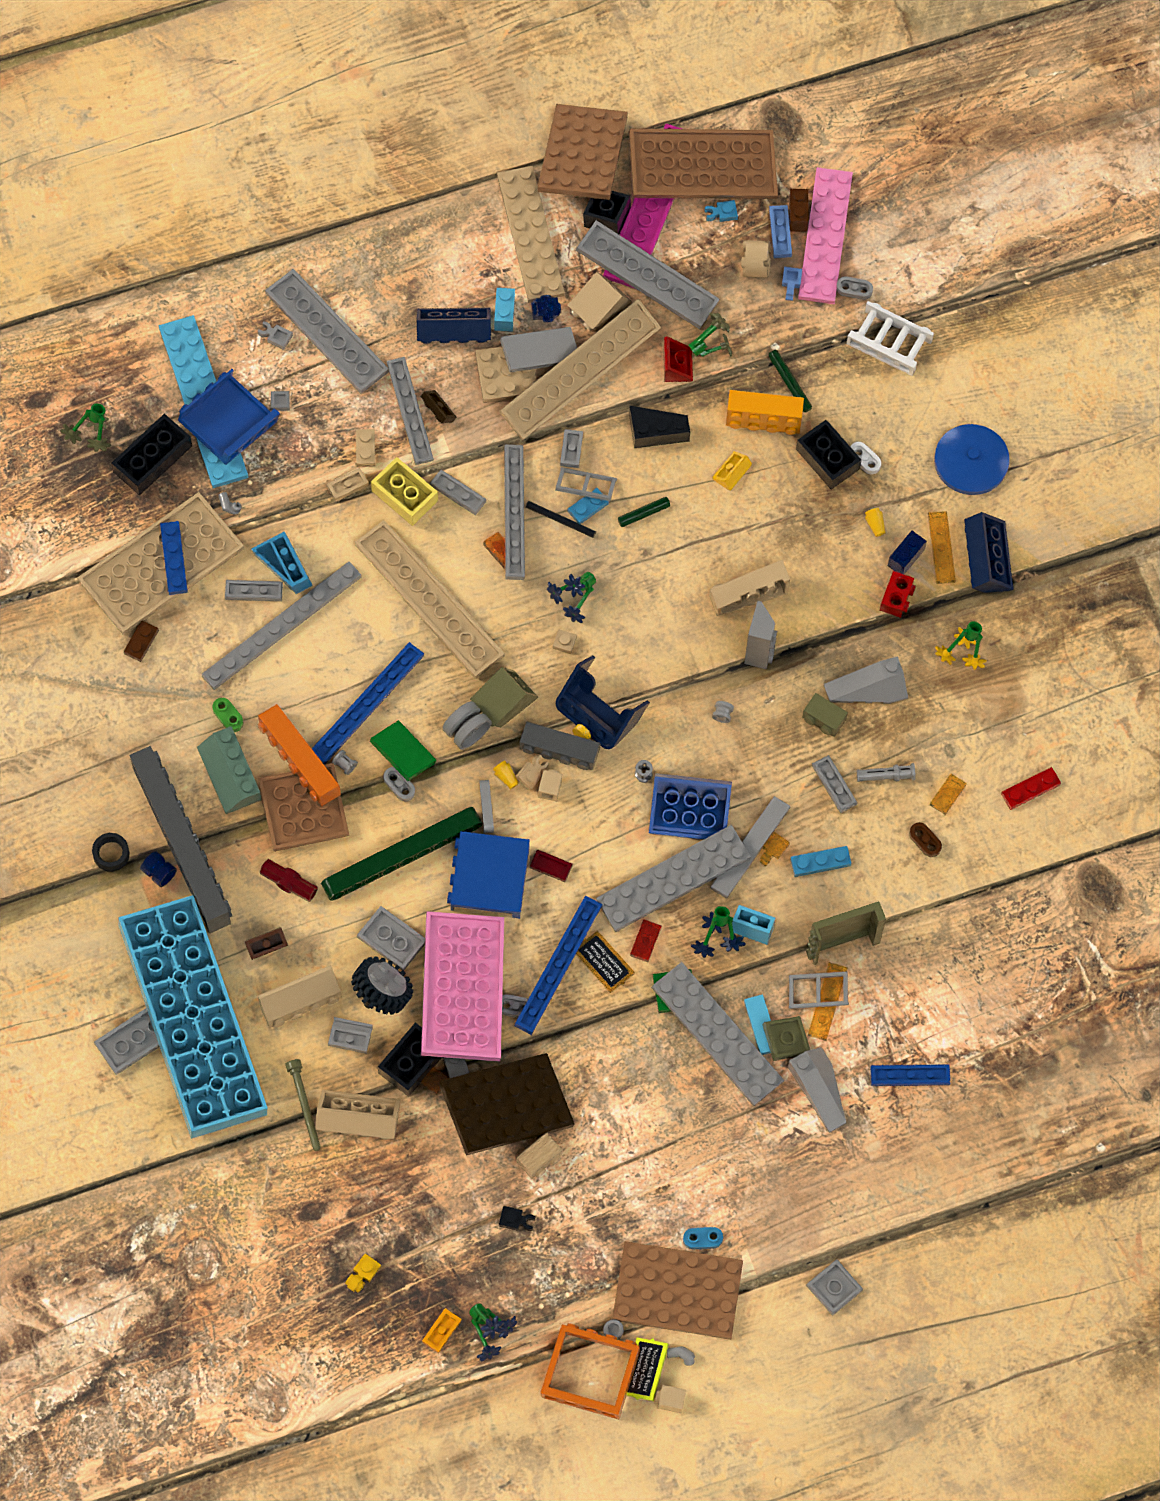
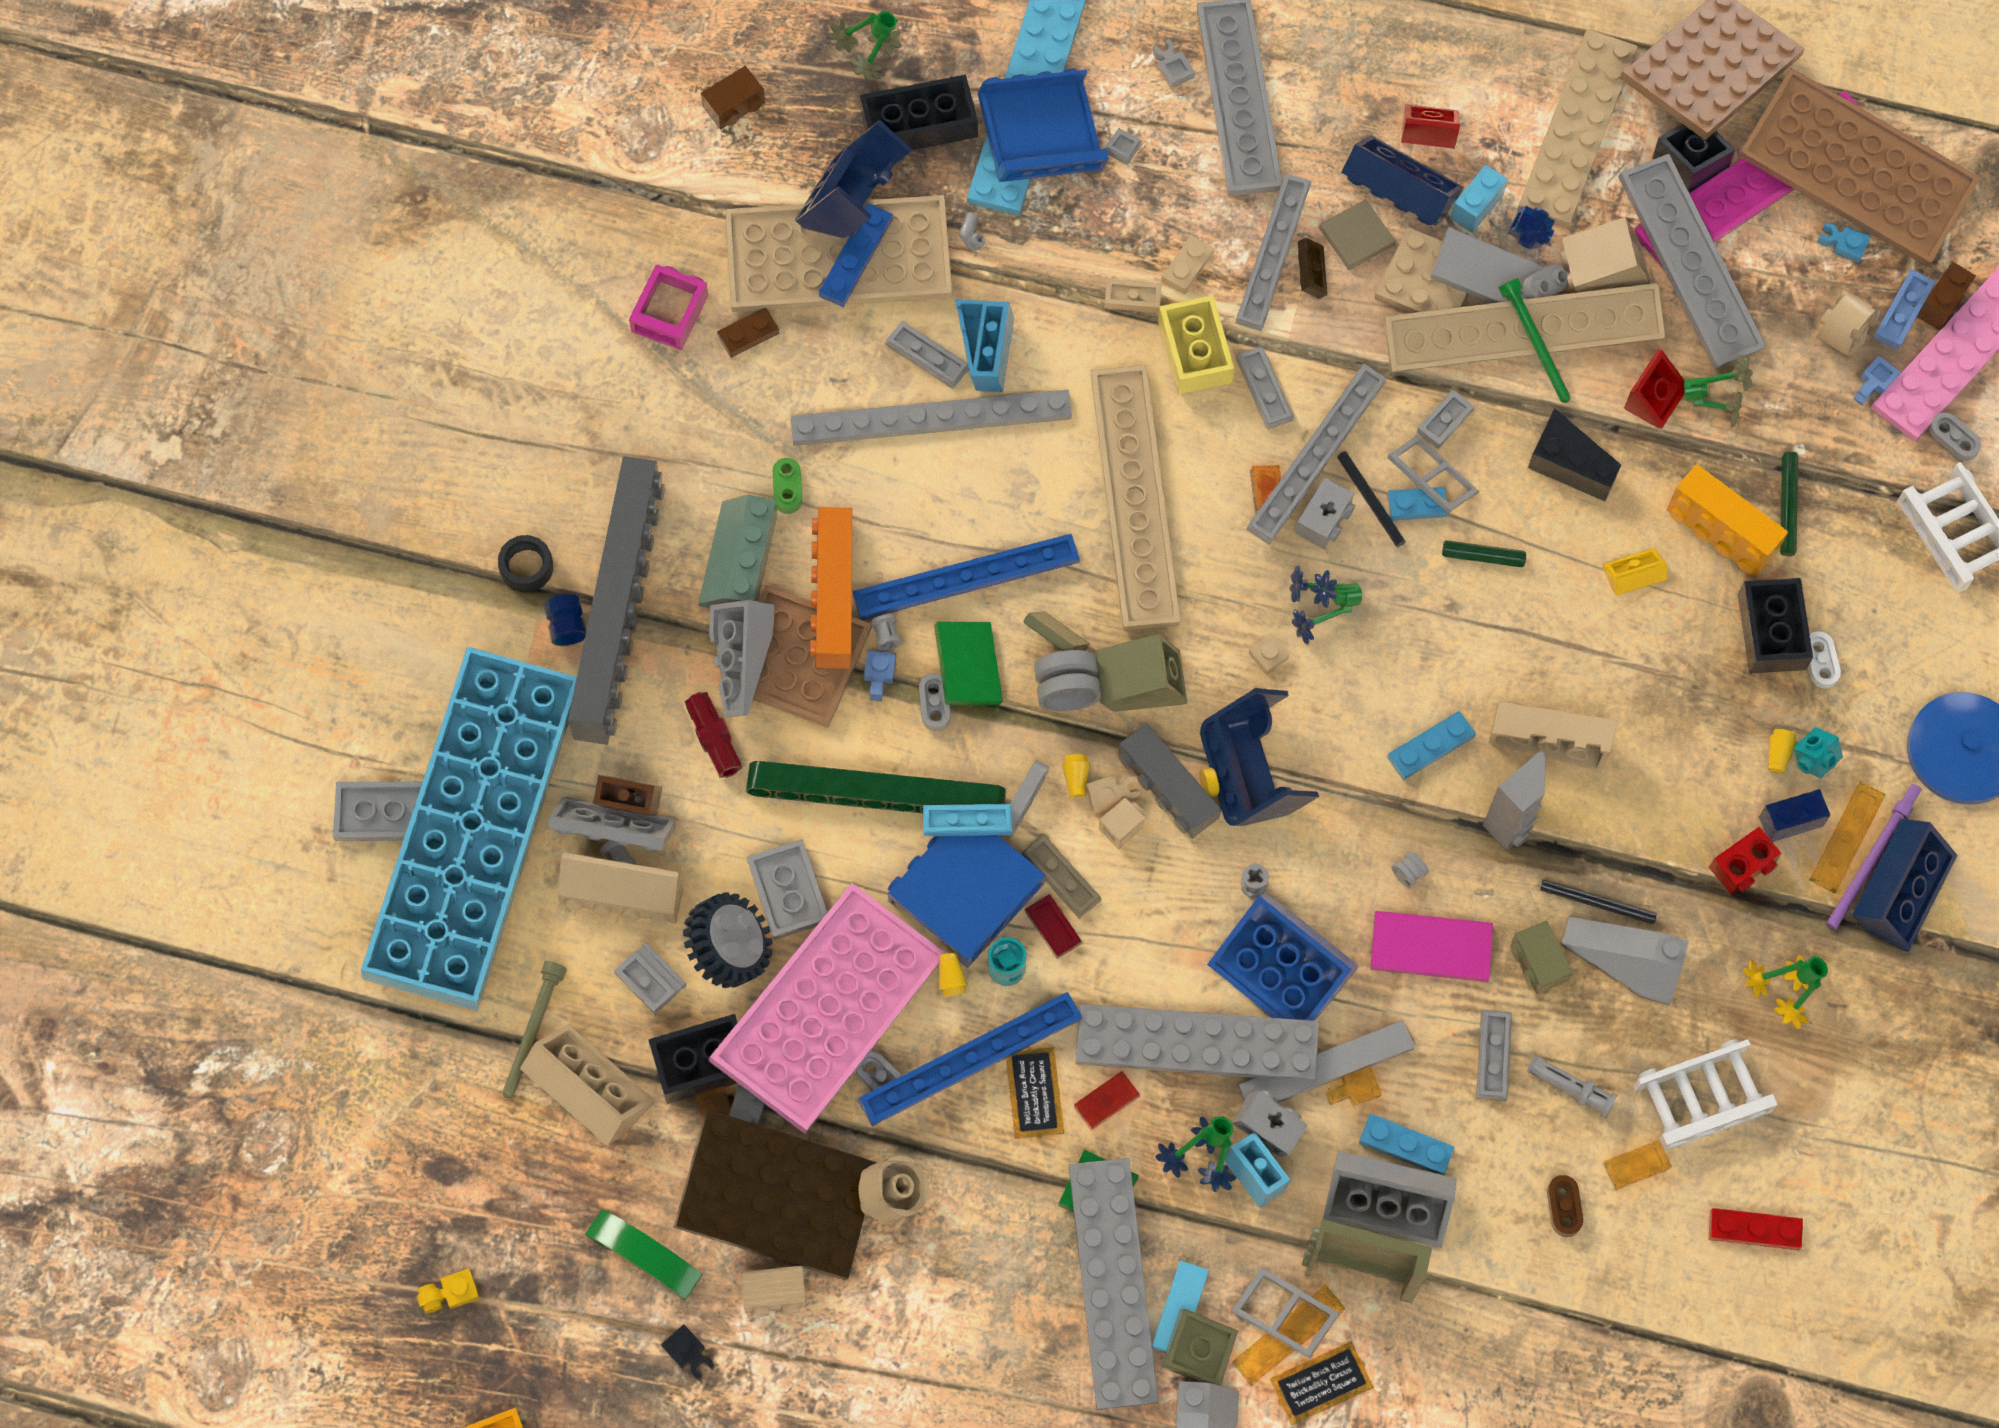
camera: 35 degrees right, 0 degrees up
(33, 509) = (733, 97): none -> reddish brown brick
(88, 671) = (657, 329): none -> dark pink window
(138, 520) = (839, 196): none -> dark blue windscreen
(269, 964) = (611, 823): none -> light grey plate
(271, 820) = (742, 641): none -> light grey wedge
(281, 978) = (616, 853): none -> light grey bush
(356, 786) = (879, 670): none -> medium blue plate
(441, 702) = (1055, 631): none -> olive tile
(447, 282) = (1430, 126): none -> red slope
(449, 371) = (1357, 234): none -> dark tan tile
(453, 1182) = (644, 1253): none -> green slope
(466, 836) = (967, 820): none -> medium azure tile
(516, 927) = (951, 976): none -> yellow cone
(538, 835) = (1062, 876): none -> dark tan tile
(539, 533) = (1314, 524): none -> light grey brick
(541, 900) = (1007, 961): none -> teal wheel
(563, 353) = (1513, 292): none -> green piece
(567, 1060) = (893, 1189): none -> tan brick
(574, 336) = (1545, 282): none -> light grey plate
(687, 637) = (1431, 745): none -> dark azure plate
(753, 893) = (1287, 1122): none -> light grey brick
(762, 746) = (1431, 946): none -> dark pink tile
(832, 894) = (1390, 1199): none -> light grey slope
(833, 666) = (1598, 901): none -> black bar
(861, 1015) = (1321, 1383): none -> piece
(897, 510) = (1818, 752): none -> teal brick
(960, 515) = (1900, 811): none -> medium lavender bar
(966, 750) = (1701, 1124): none -> white fence

